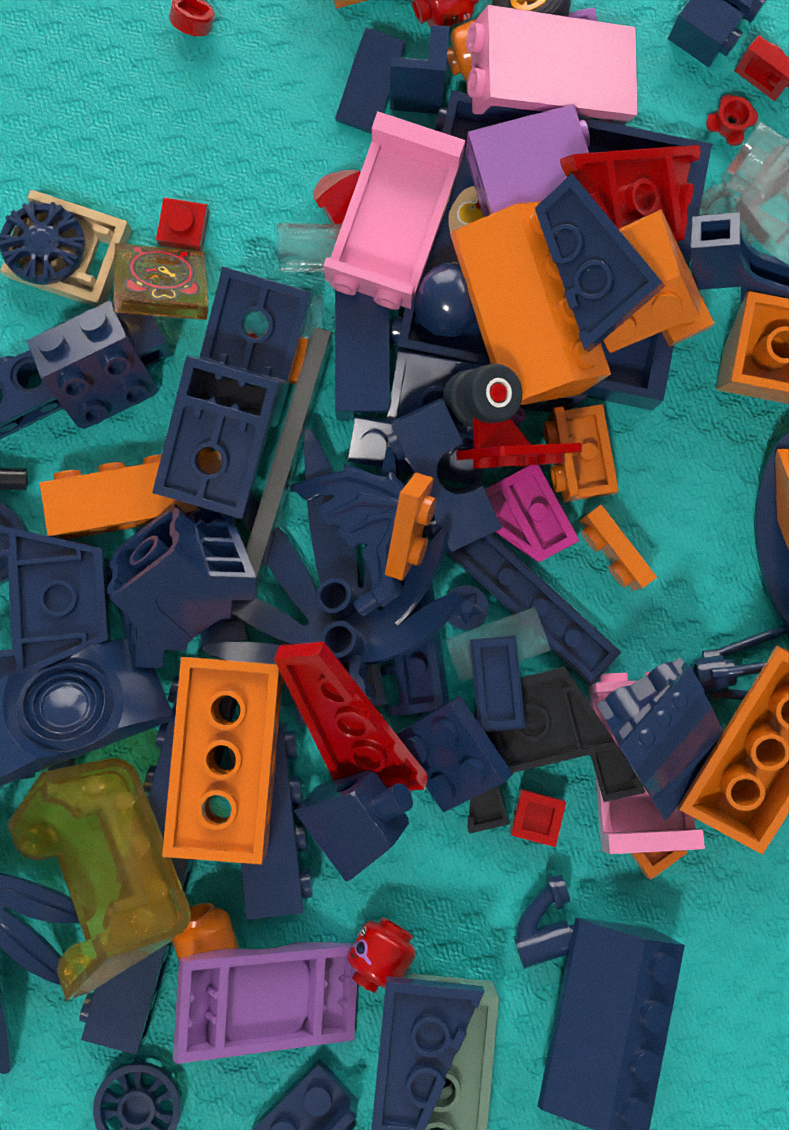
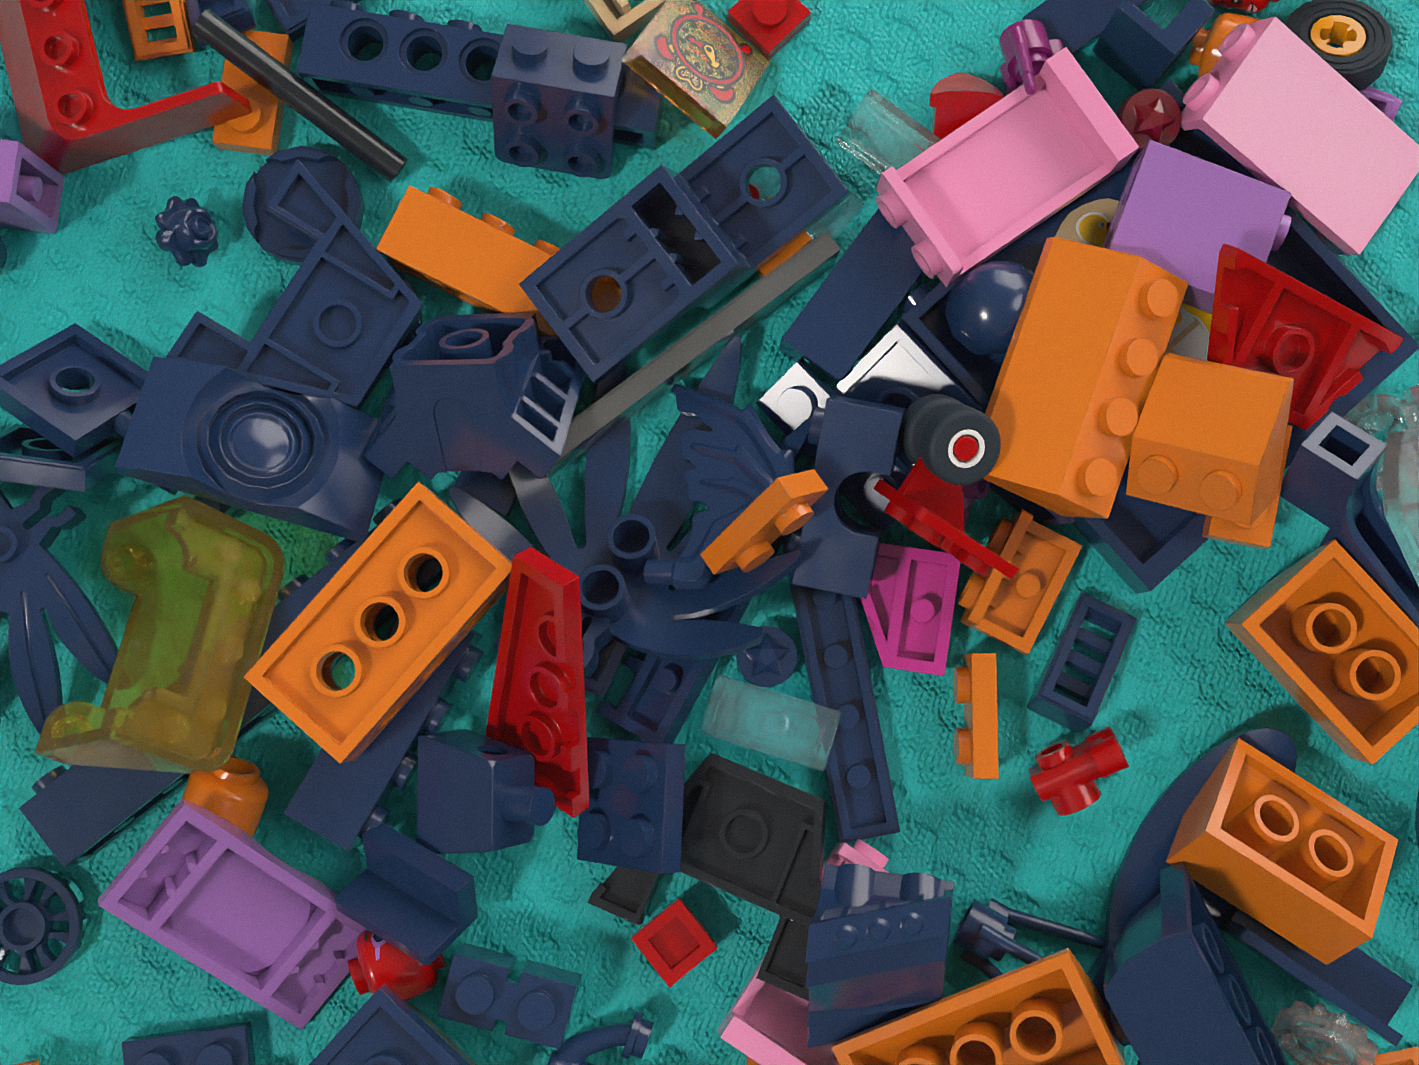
camera: 45 degrees right, 0 degrees up
(354, 138) = (1024, 52): none -> magenta plant
(360, 911) = (409, 895): none -> dark blue panel
(448, 936) = (482, 994): none -> dark blue piece
(457, 118) = (1150, 116): none -> dark red tile
(497, 683) = (737, 762): dark blue tile -> none
(596, 262) = (1178, 385): dark blue wing -> none
(658, 510) = (1060, 708): none -> dark blue slope
(693, 544) = (1069, 773): none -> red plate

